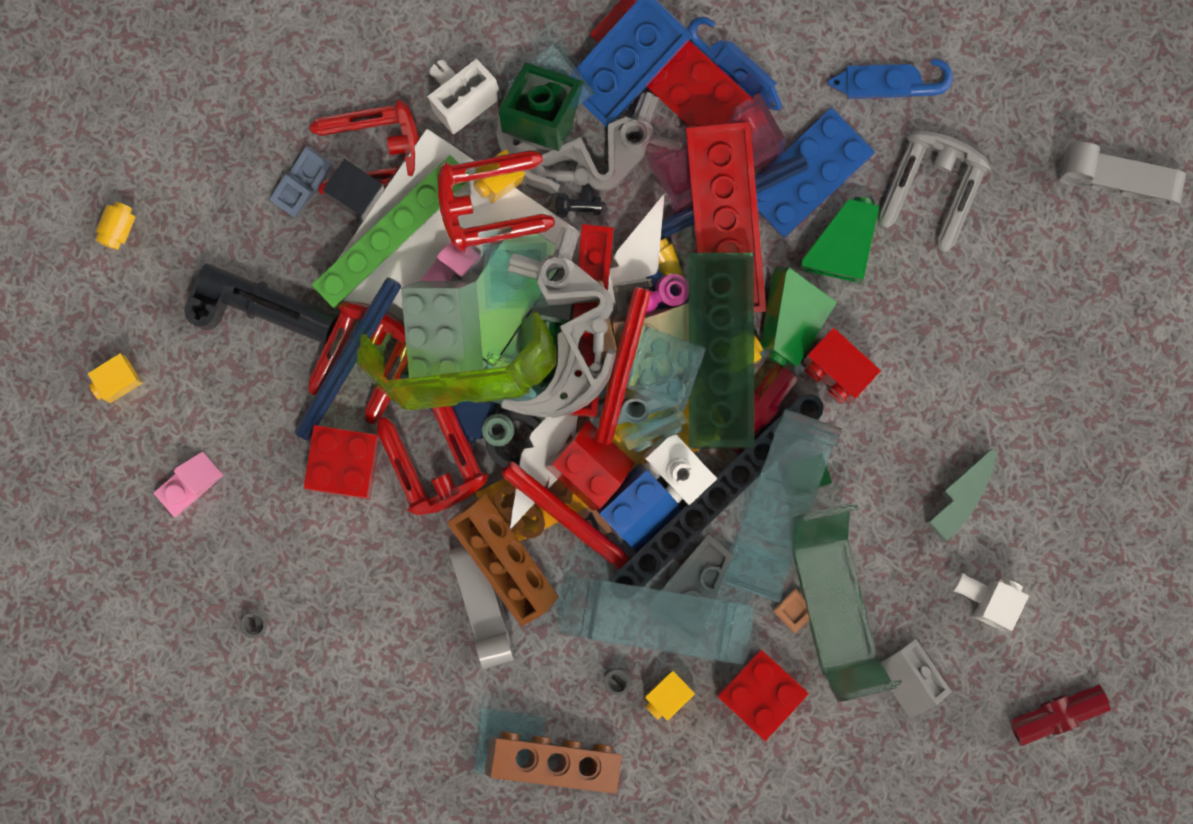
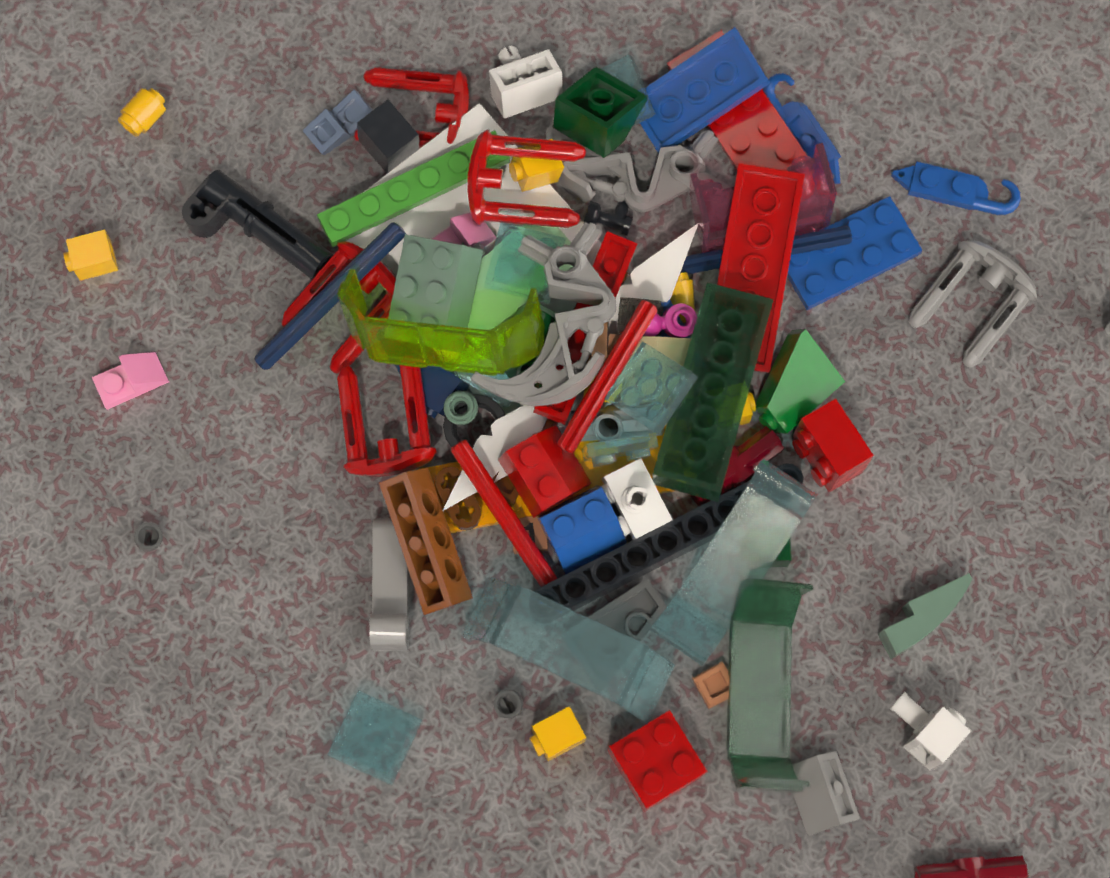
camera: 10 degrees right, 10 degrees down
(342, 462) = (292, 400): red brick -> none
(601, 777) = (460, 799): dark orange brick -> none
(845, 243) = (867, 328): green slope -> none

